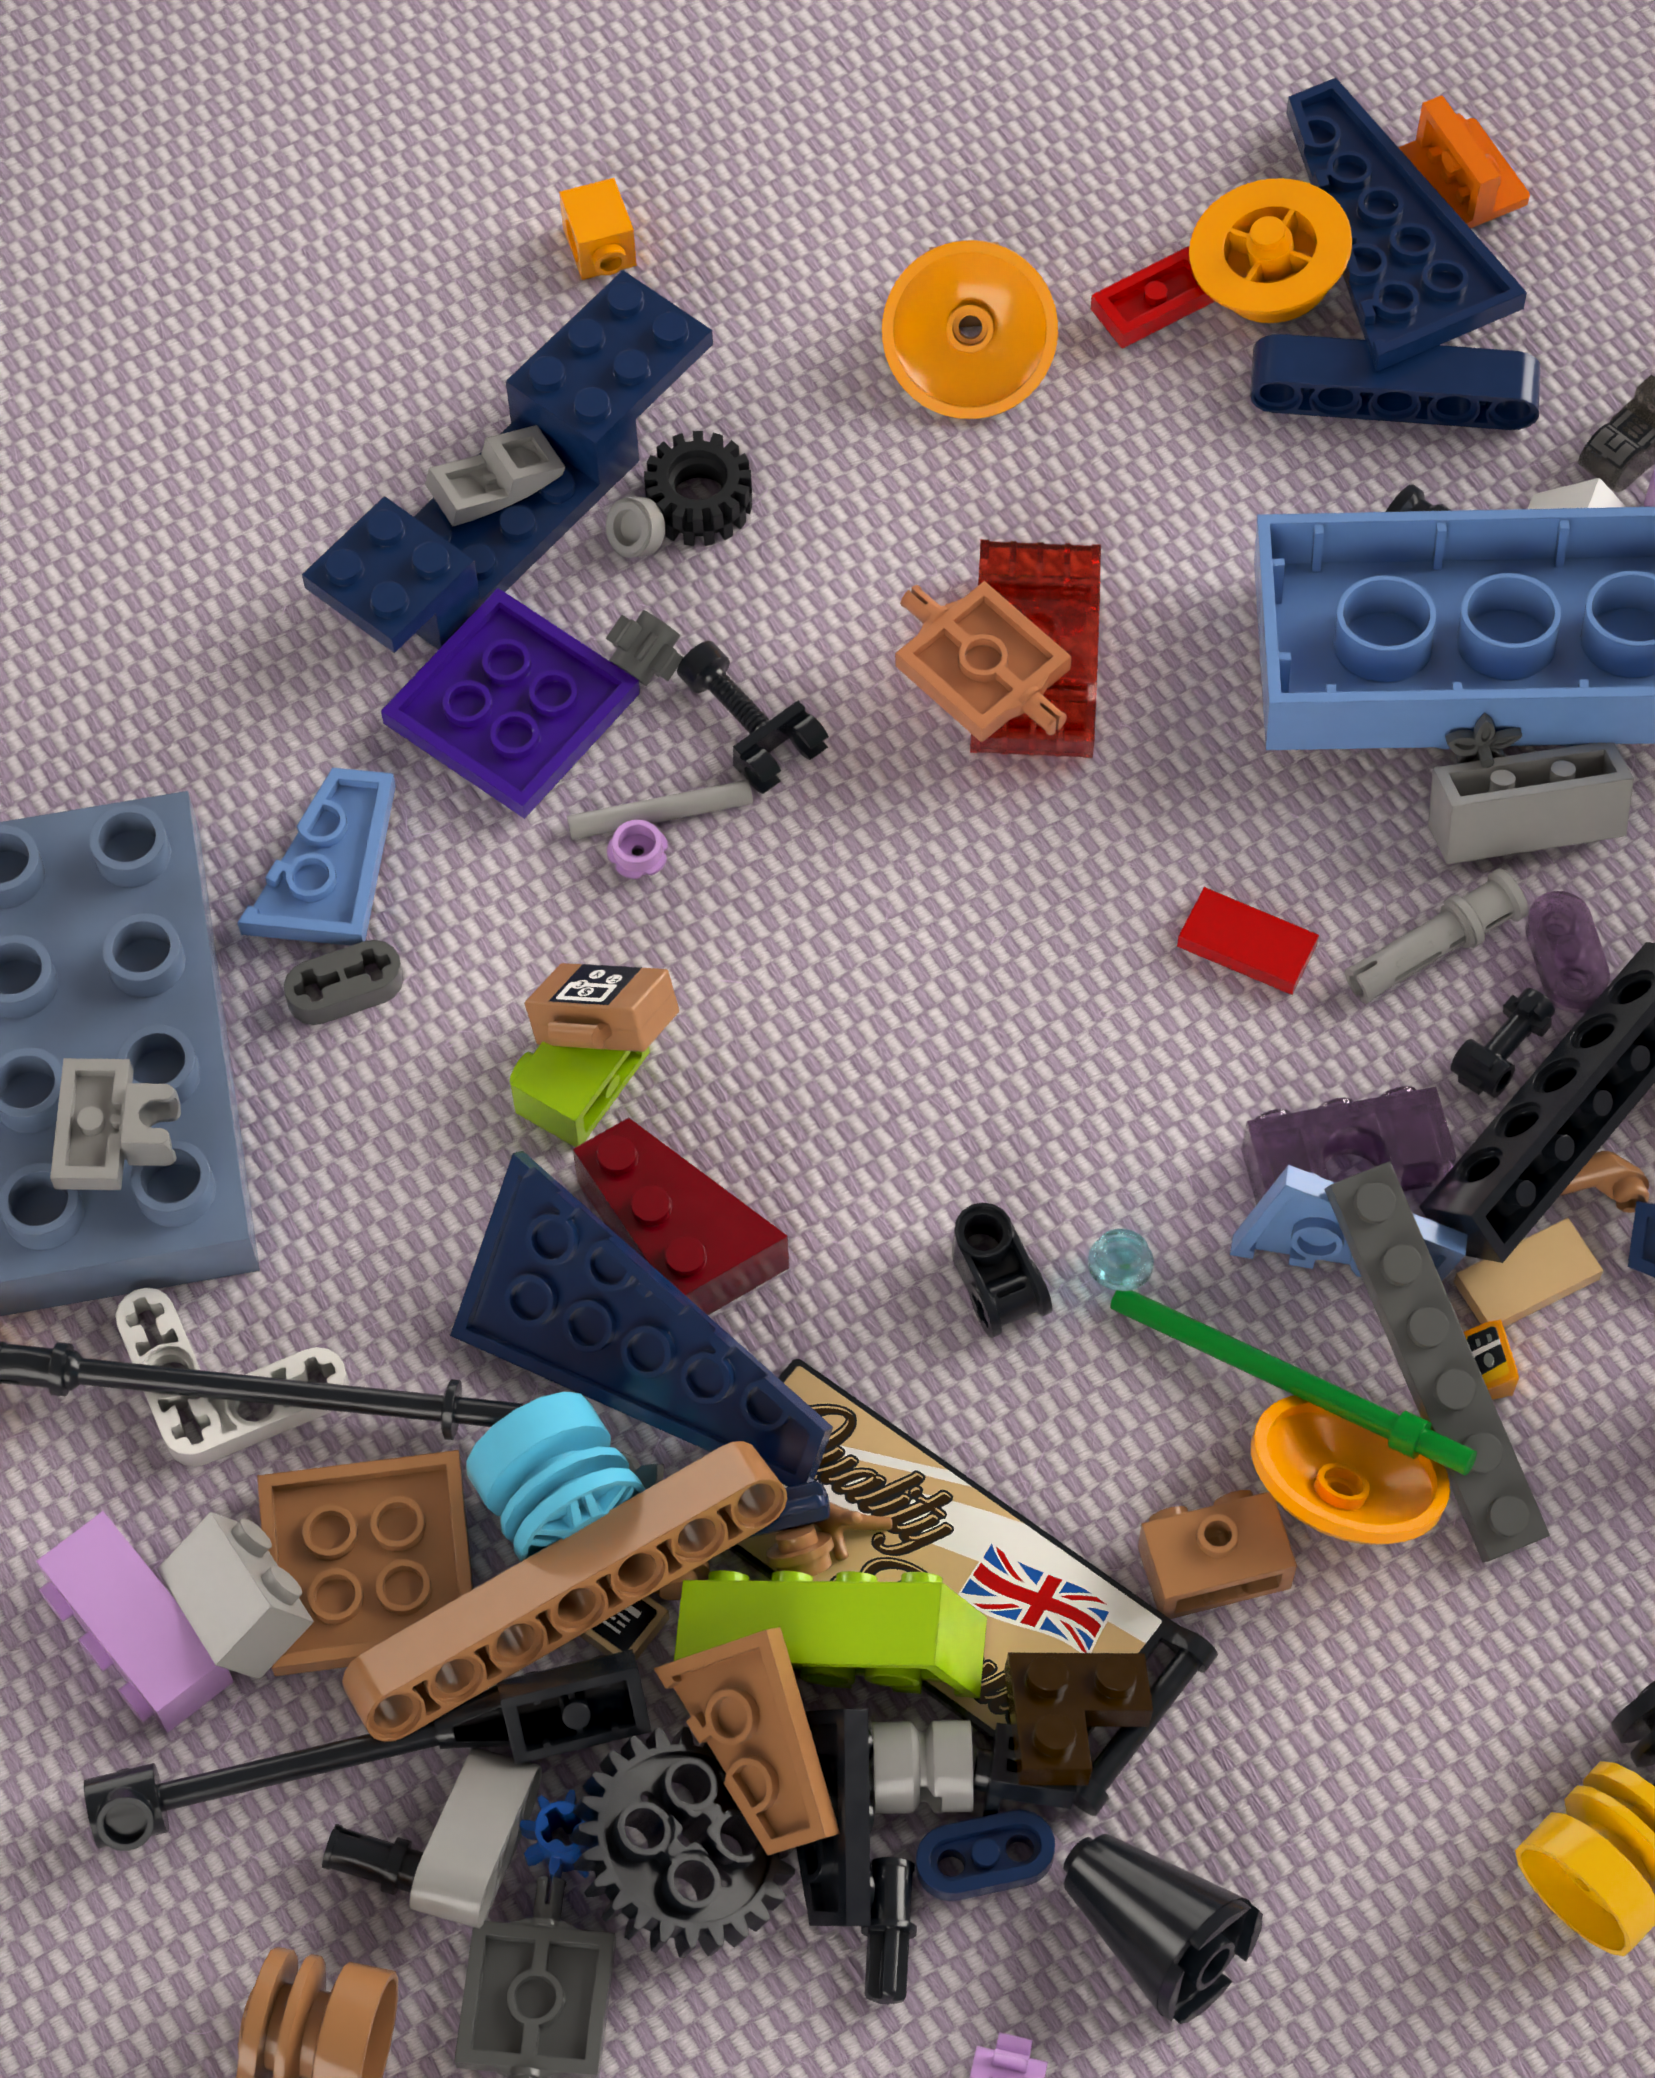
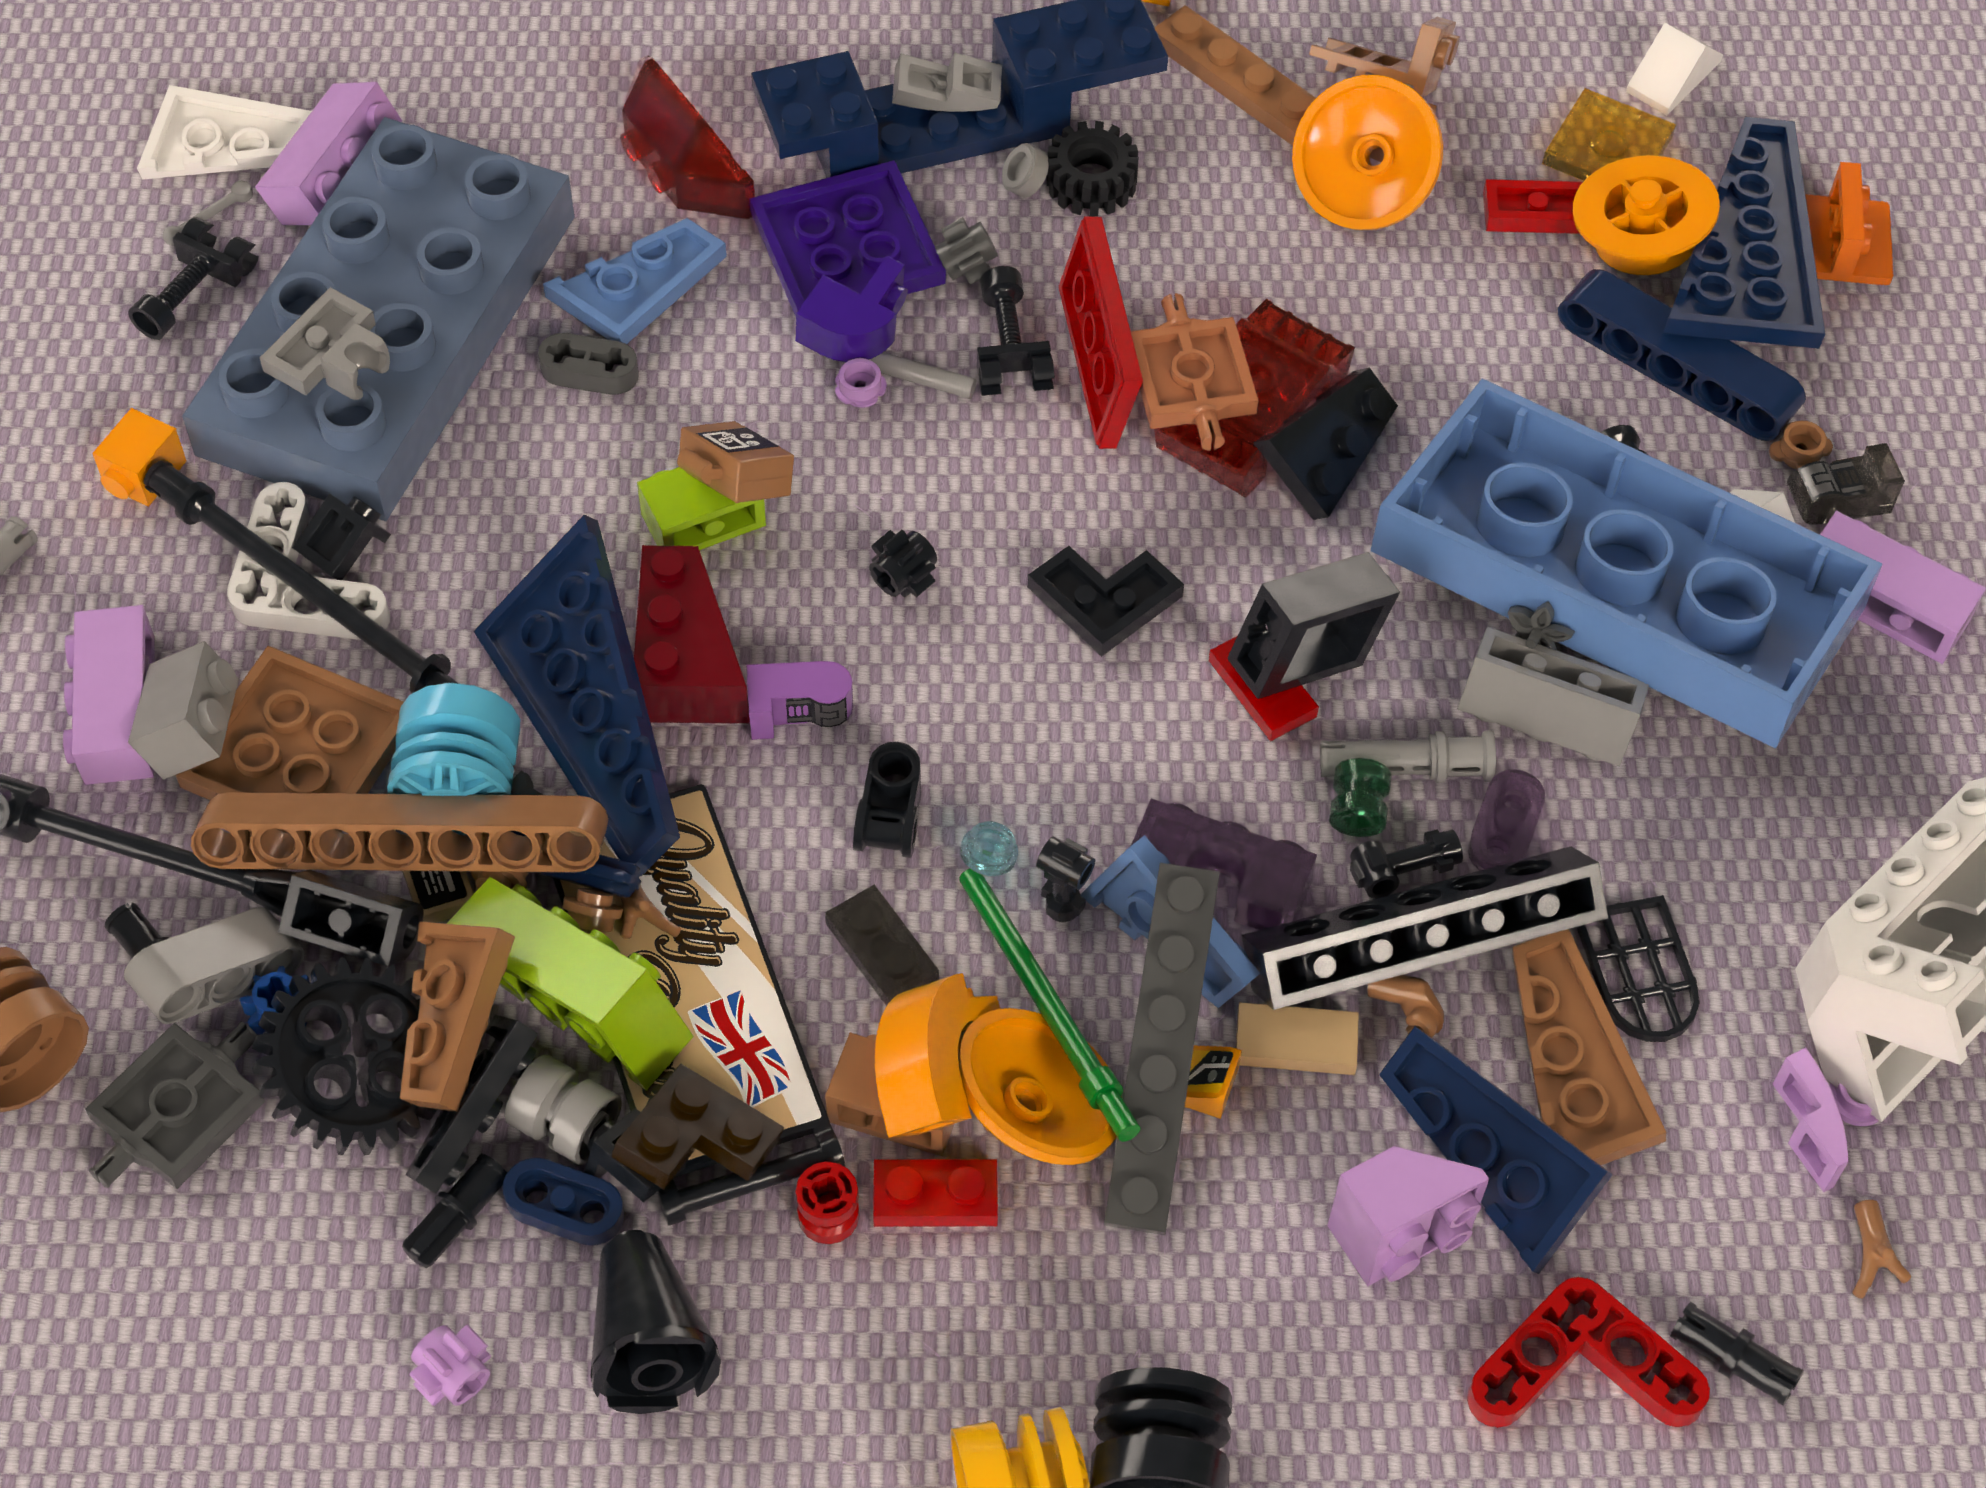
camera: 30 degrees right, 5 degrees down
(235, 1315) = (339, 535): none -> black bracket
(265, 690) = (681, 148): none -> clear red wedge
(594, 793) = (853, 324): none -> dark purple brick
(772, 306) = (1234, 72): none -> medium nougat plate
(824, 1209) = (797, 694): none -> medium lavender leg
(828, 1016) = (903, 563): none -> black gear
(850, 665) = (1100, 333): none -> red plate
(956, 212) = (1433, 51): none -> medium nougat plate
(1043, 953) = (1102, 608): none -> black plate
(1088, 1418) = (880, 944): none -> clear smoke plate
(1142, 655) = (1329, 440): none -> black wing
(1165, 187) = (1603, 132): none -> clear yellow tile
(1178, 81) = (1672, 69): none -> white slope
(1225, 1241) = (1067, 871): none -> black bar
(1232, 1716) = (827, 1217): none -> red wheel
(1242, 1503) = (919, 1055): none -> light orange arch
(1275, 858) = (1315, 624): none -> black window
(1314, 1628) = (935, 1192): none -> red plate
(1424, 1007) = (1360, 803): none -> clear green wheel
(1569, 405) = (1801, 444): none -> medium nougat plate

